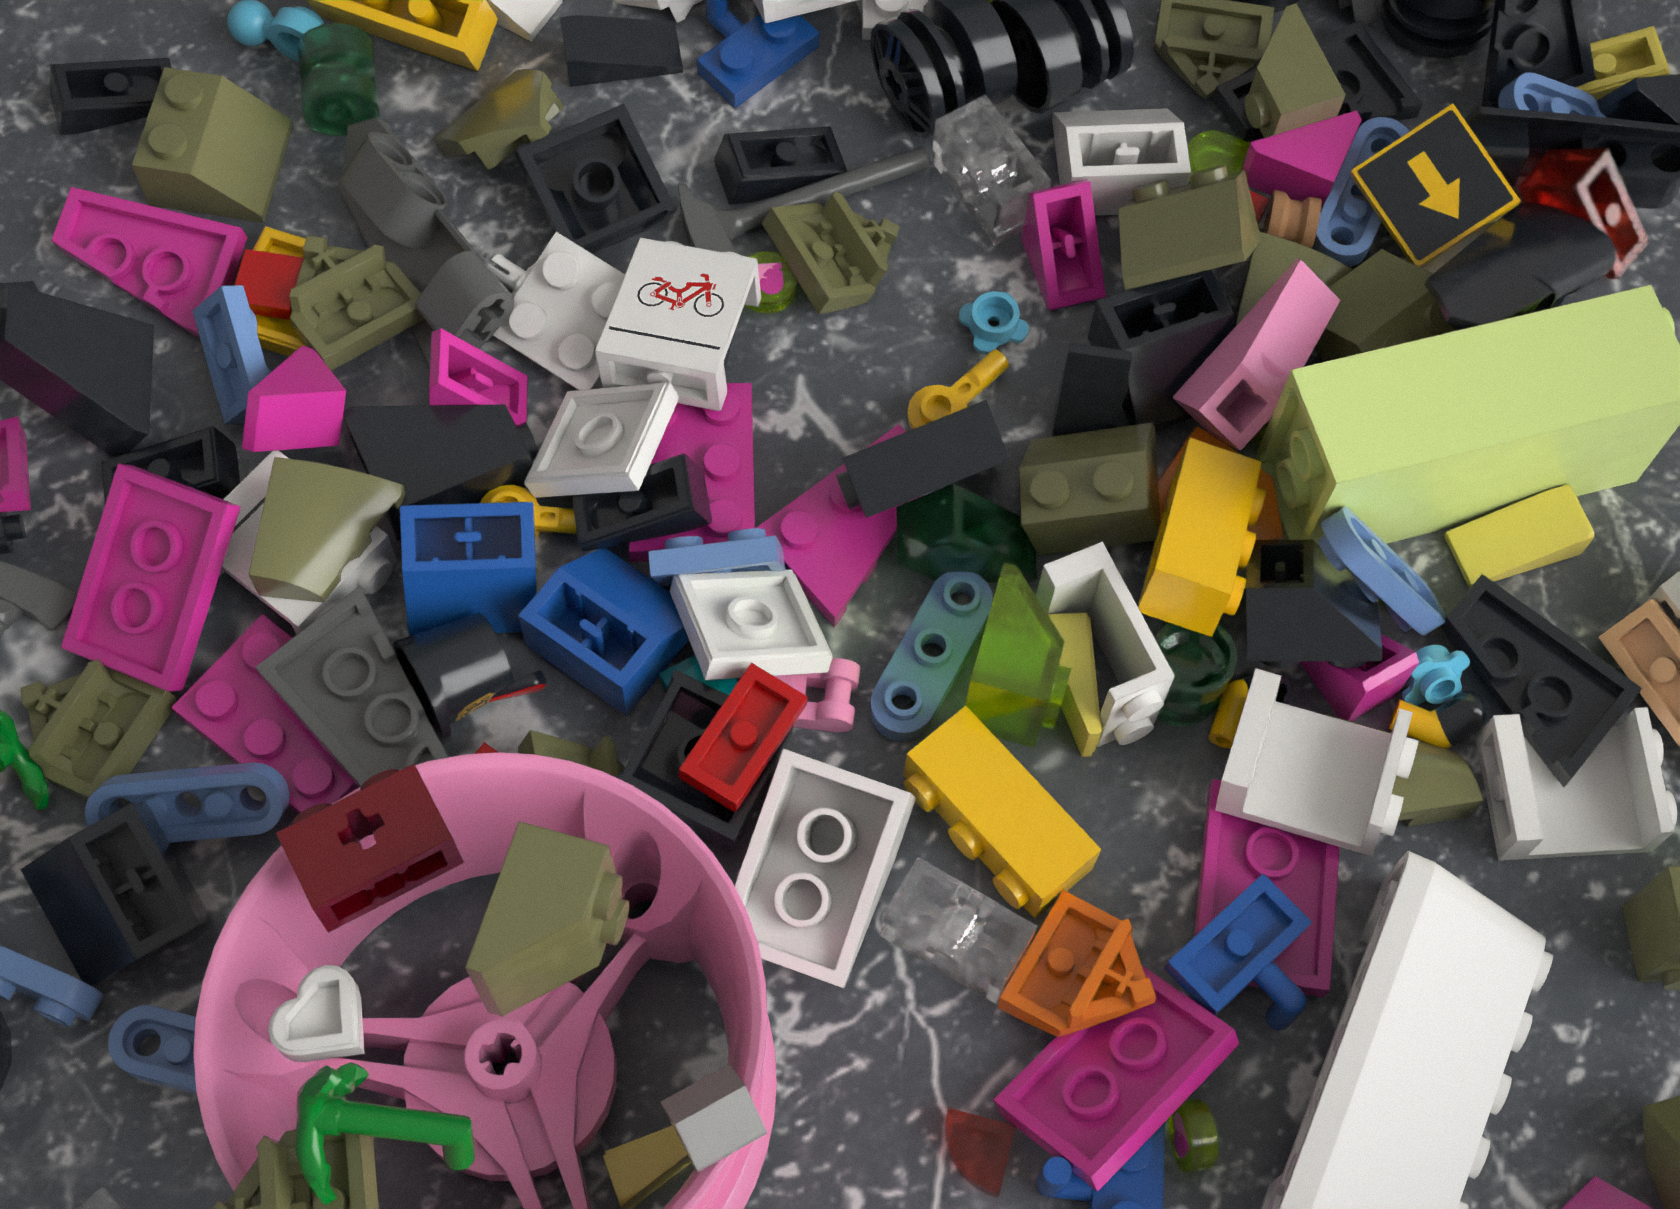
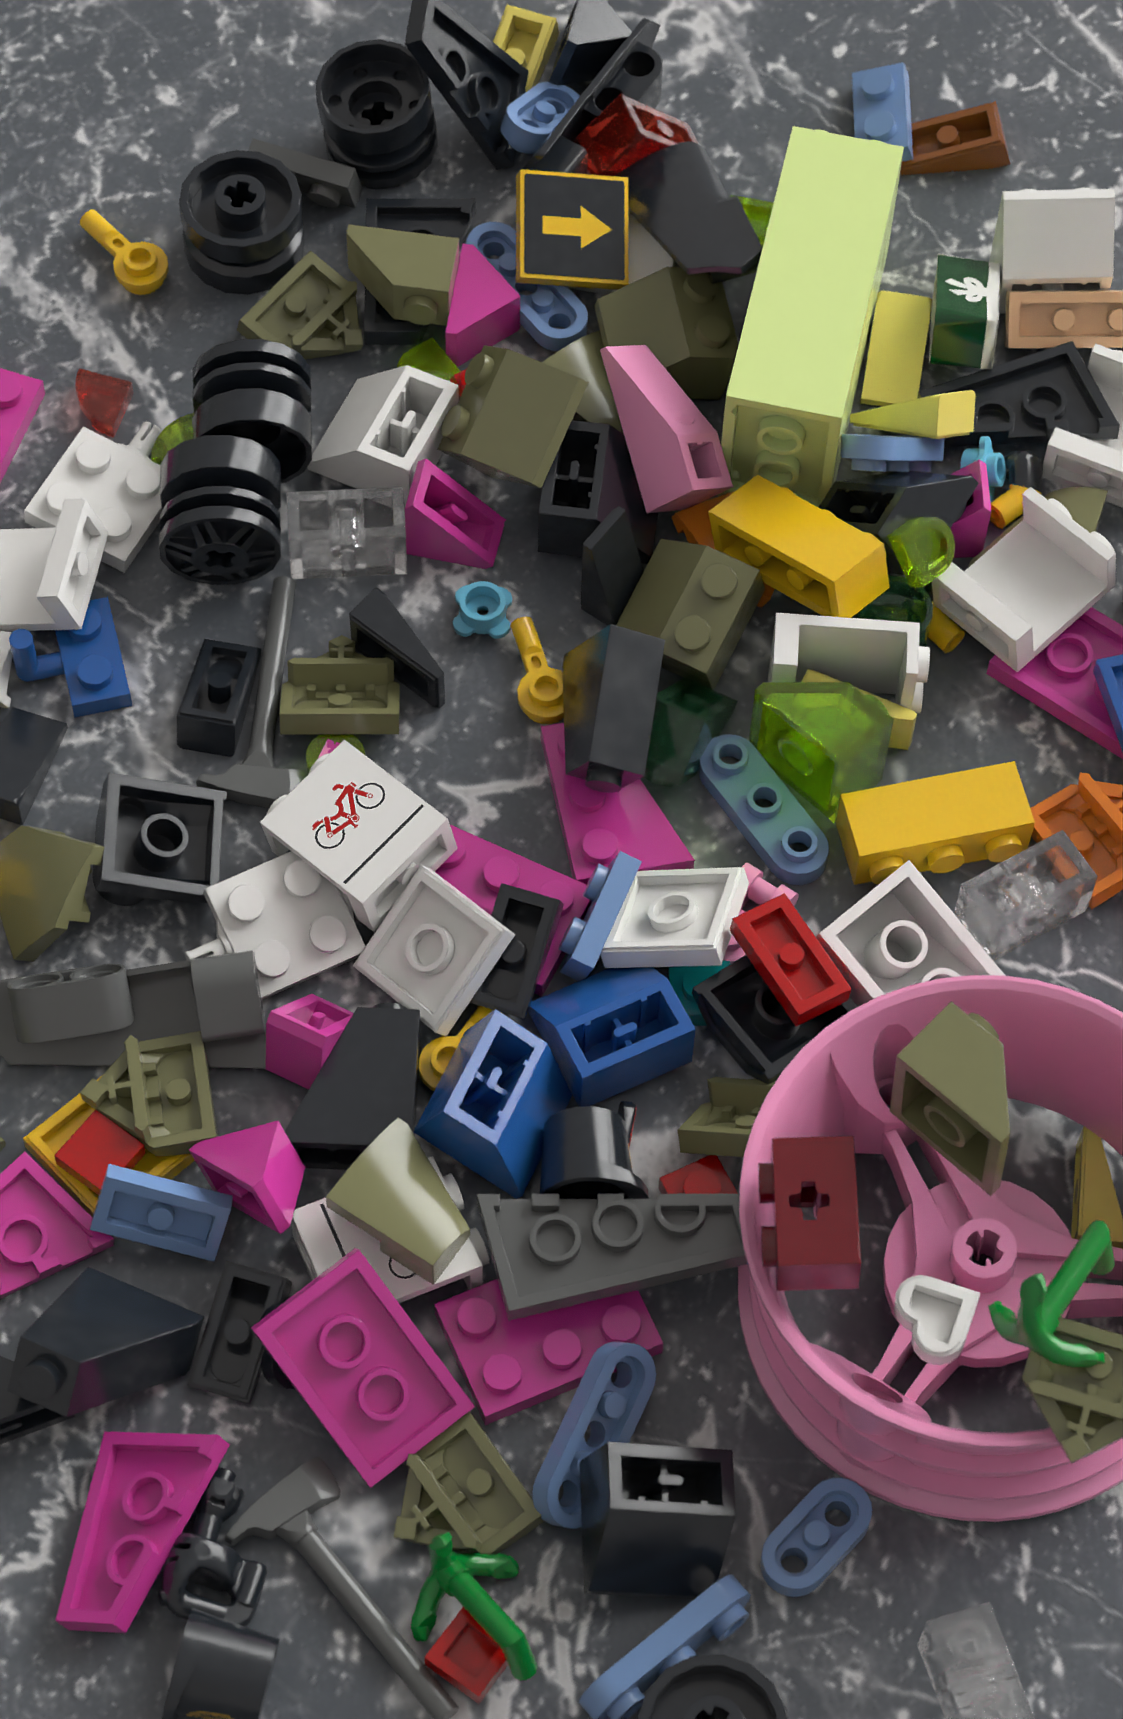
camera: 60 degrees left, 5 degrees down
(912, 255) = (384, 633): none -> black slope
(1268, 643) = (923, 549): none -> clear neon green tile
(1293, 218) = (531, 338): medium nougat wheel -> none
(1442, 588) = (927, 417): none -> light yellow slope
(1597, 569) = (964, 312): none -> dark green piece

